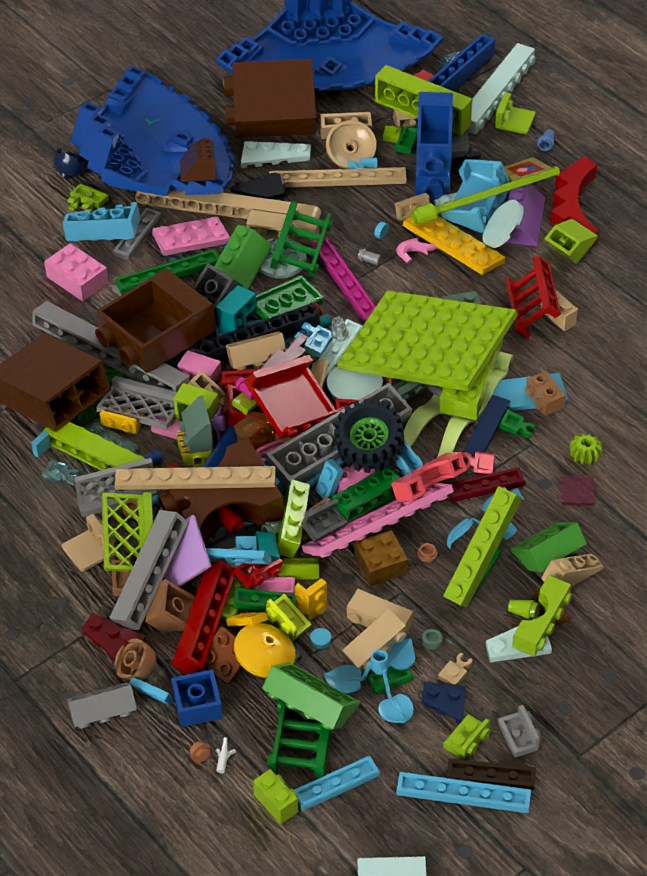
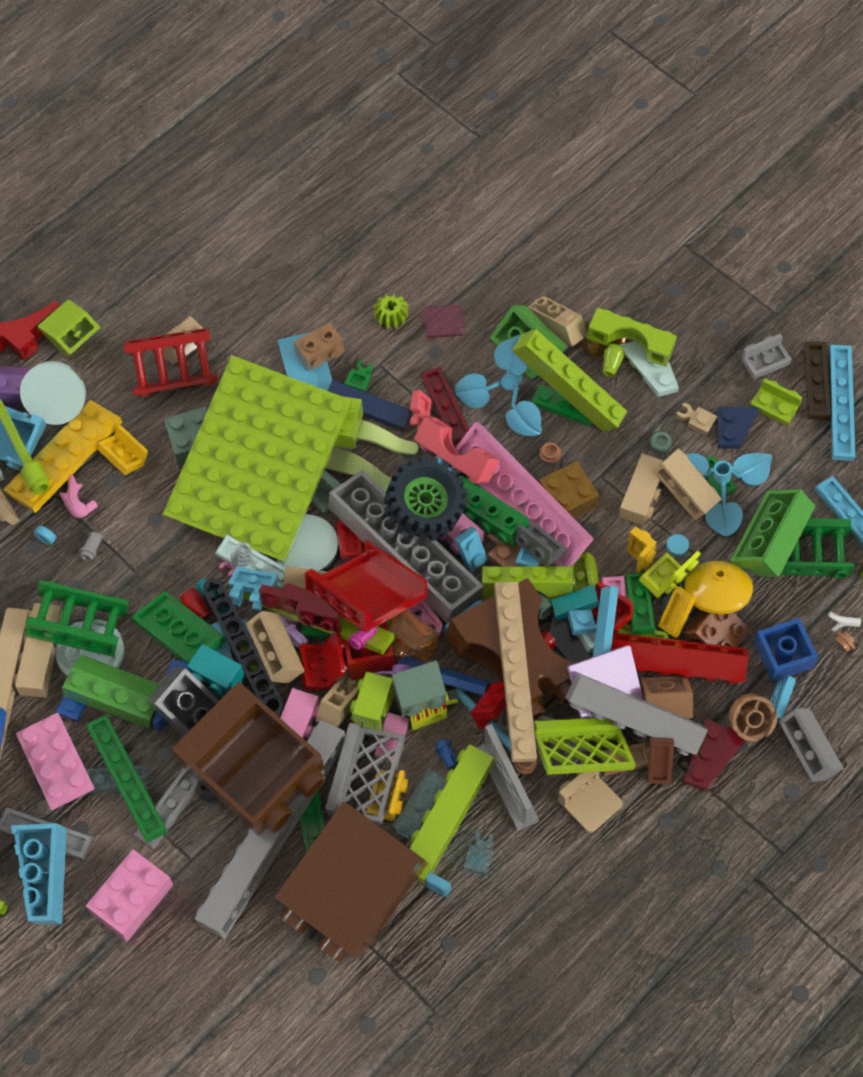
camera: 95 degrees left, 15 degrees up
(109, 592) = (660, 760): none -> copper tile
(345, 279) = (144, 563): dark pink tile -> none
(452, 273) = (123, 451): none -> yellow bracket

